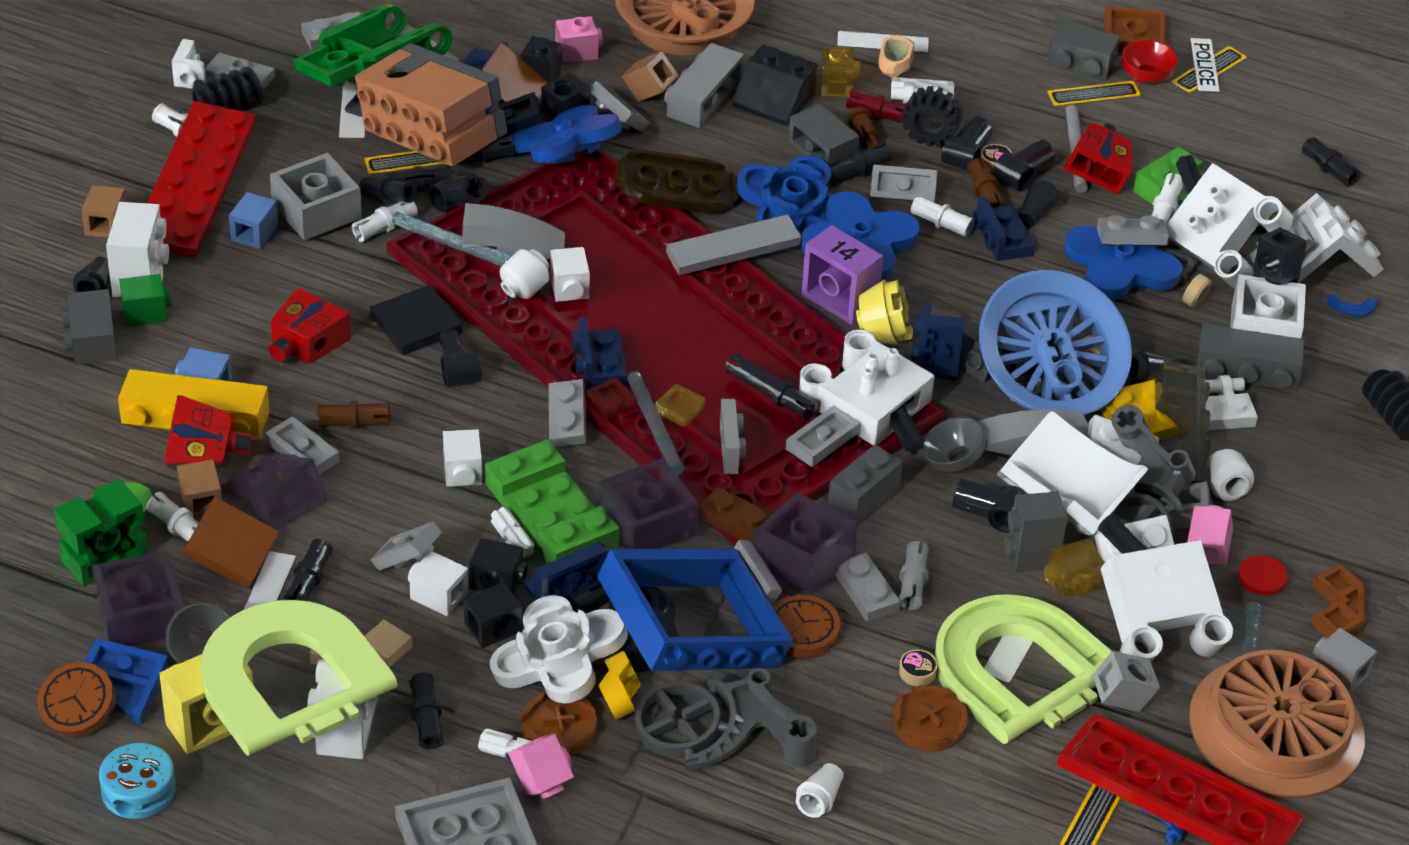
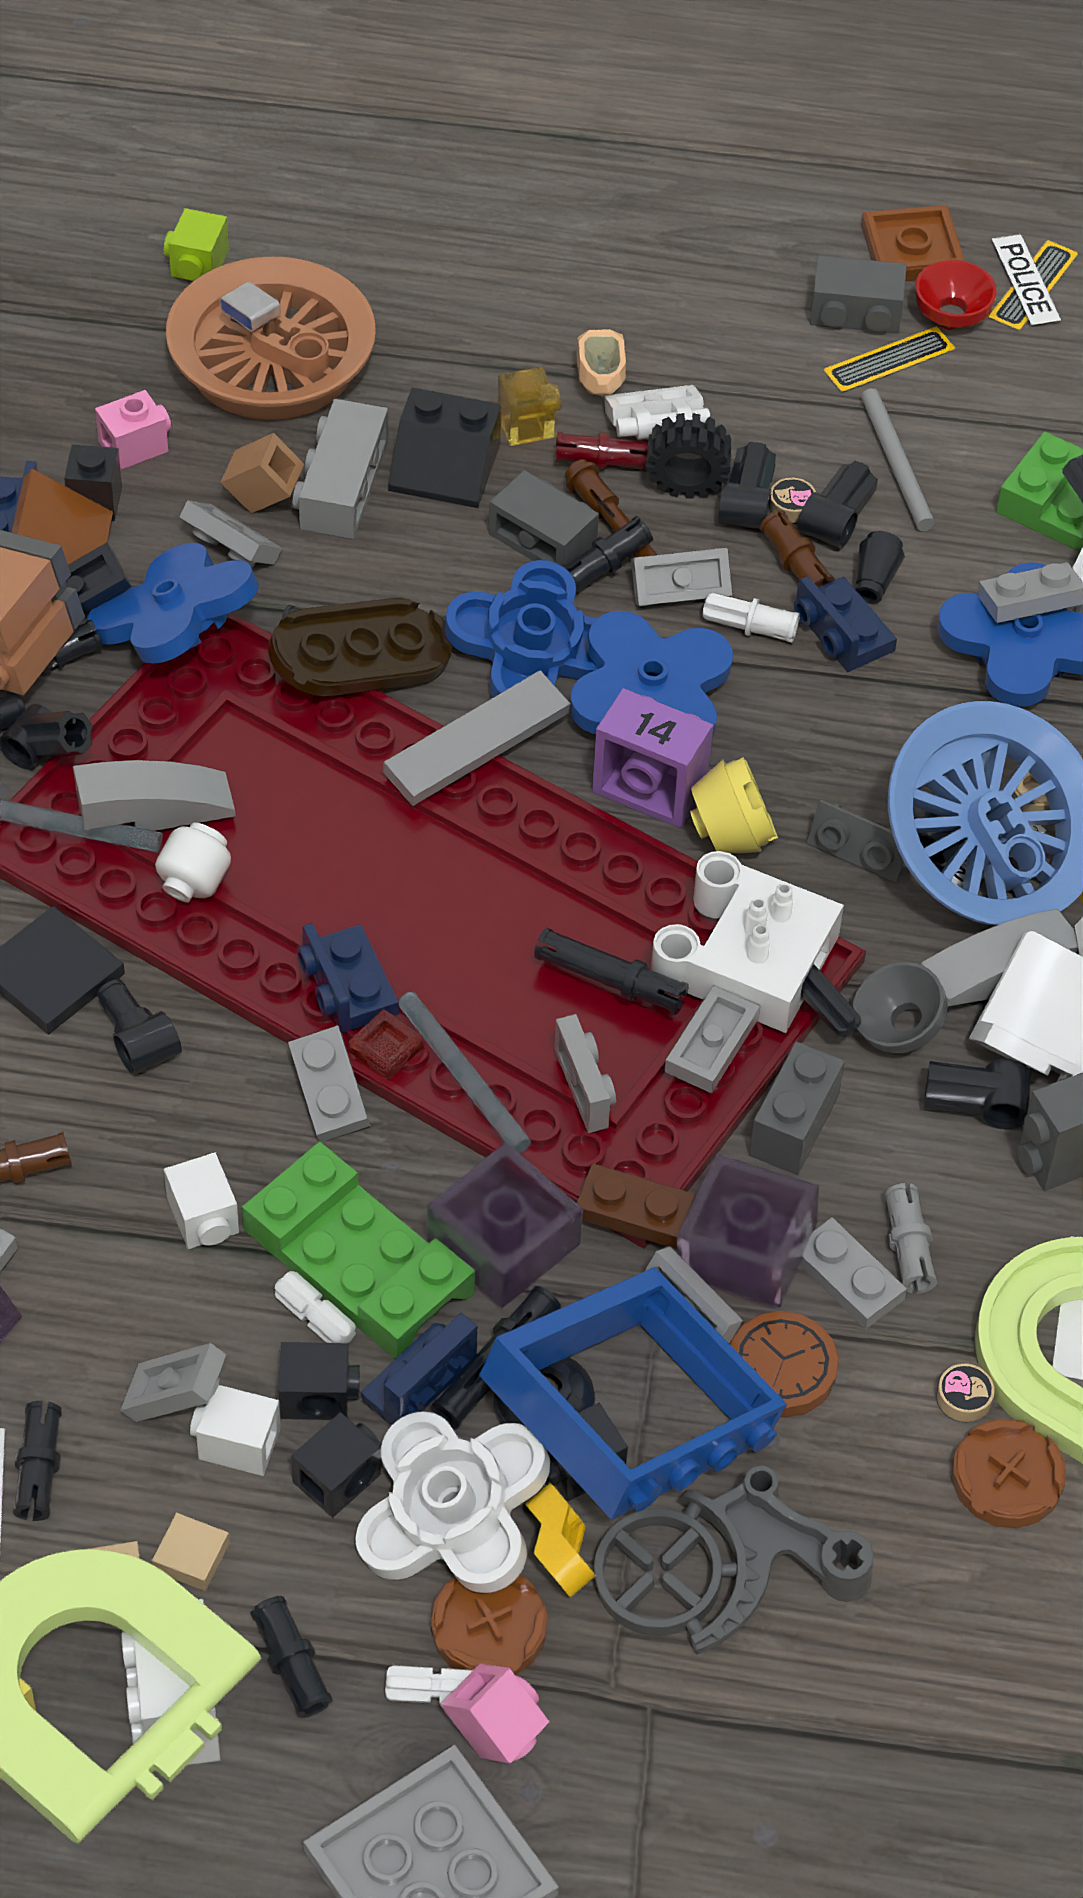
camera: 15 degrees left, 10 degrees up
(563, 94) = (147, 533): black brick -> none
(569, 274) = (259, 846): white brick -> none
(680, 405) = (489, 1032): clear yellow tile -> none
(819, 791) = (900, 1642): white cone -> none
(871, 40) = (561, 334): white sticker -> none
(939, 343) = (824, 845): dark blue bracket -> none
(1102, 157) = (944, 471): red torso -> none
(1166, 203) = (1057, 527): white pin -> none

